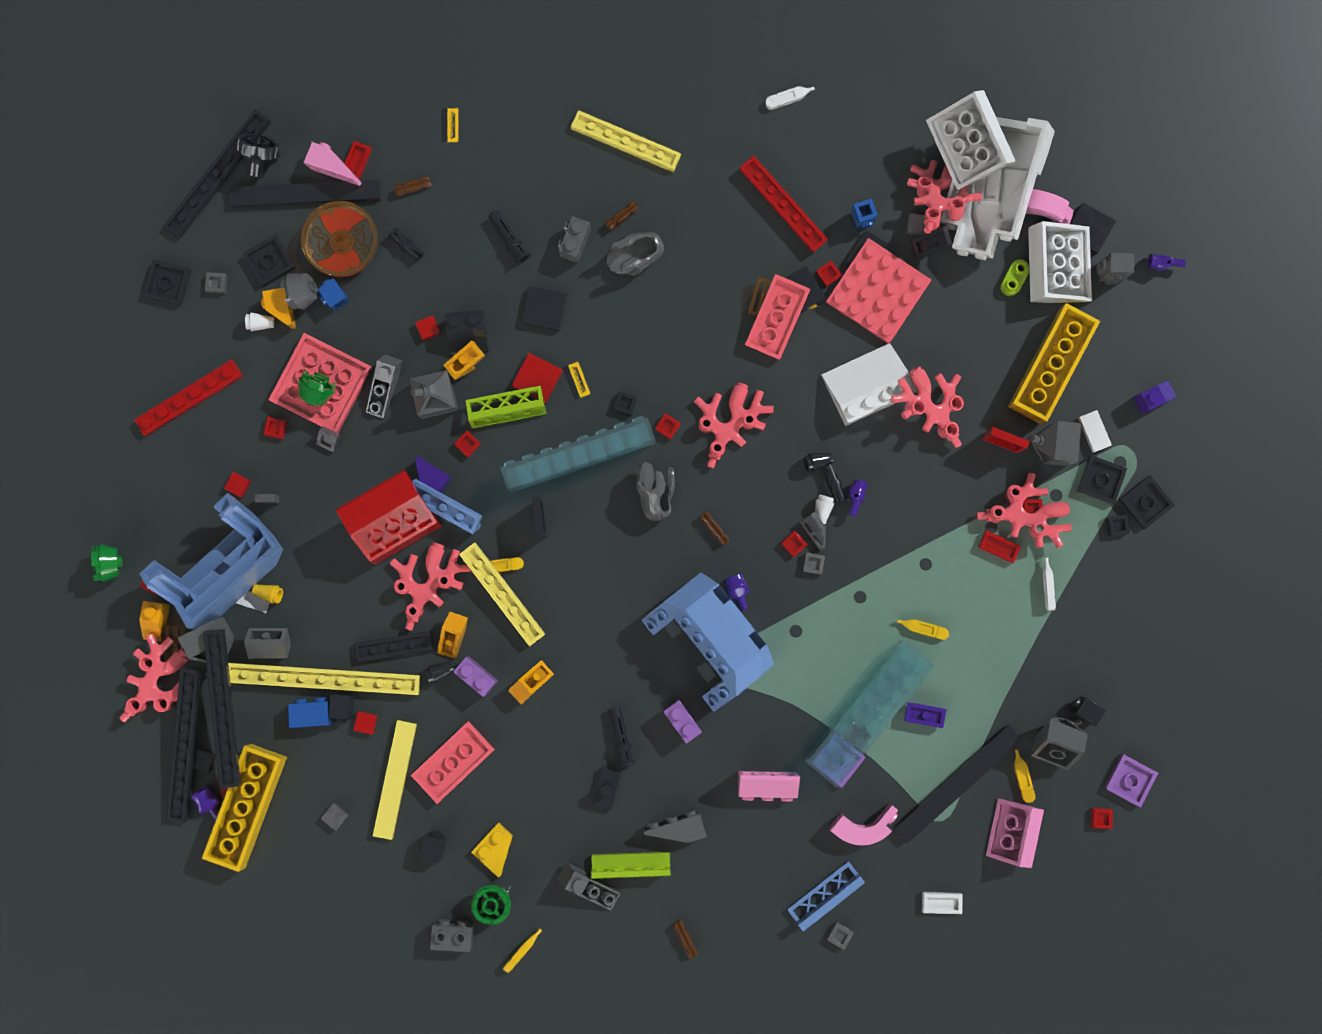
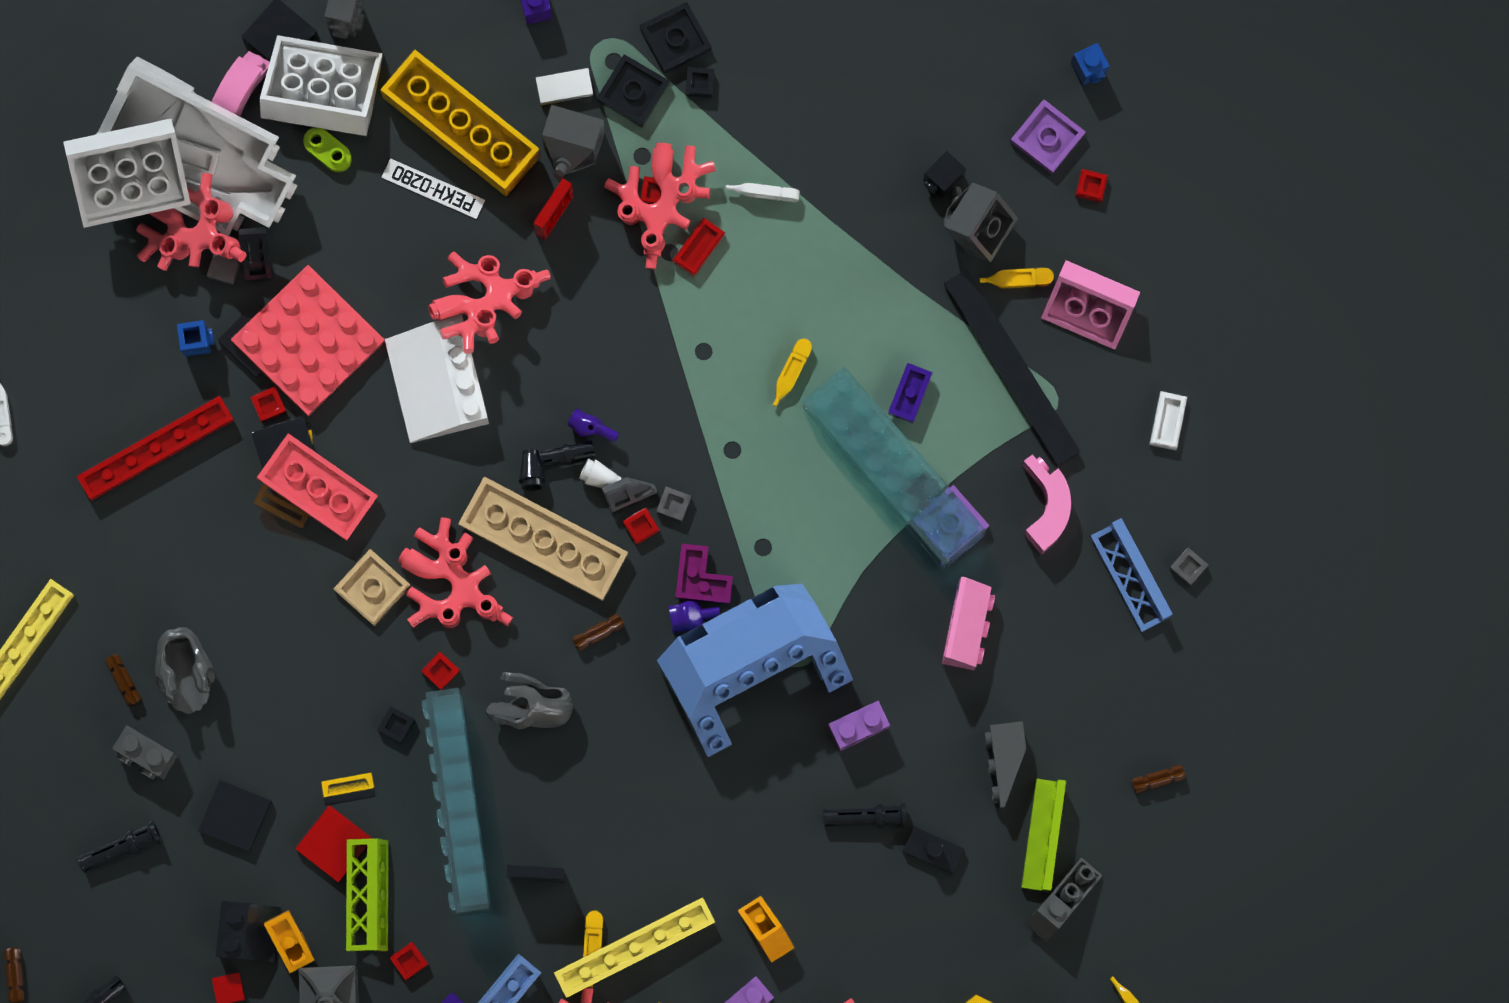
camera: 85 degrees left, 5 degrees down
(716, 368) = (372, 587): none -> tan tile
(760, 589) = (695, 583): none -> magenta plate
(772, 478) = (543, 538): none -> tan plate
(1002, 355) = (433, 188): none -> white sticker
(1191, 802) = (1090, 64): none -> blue brick

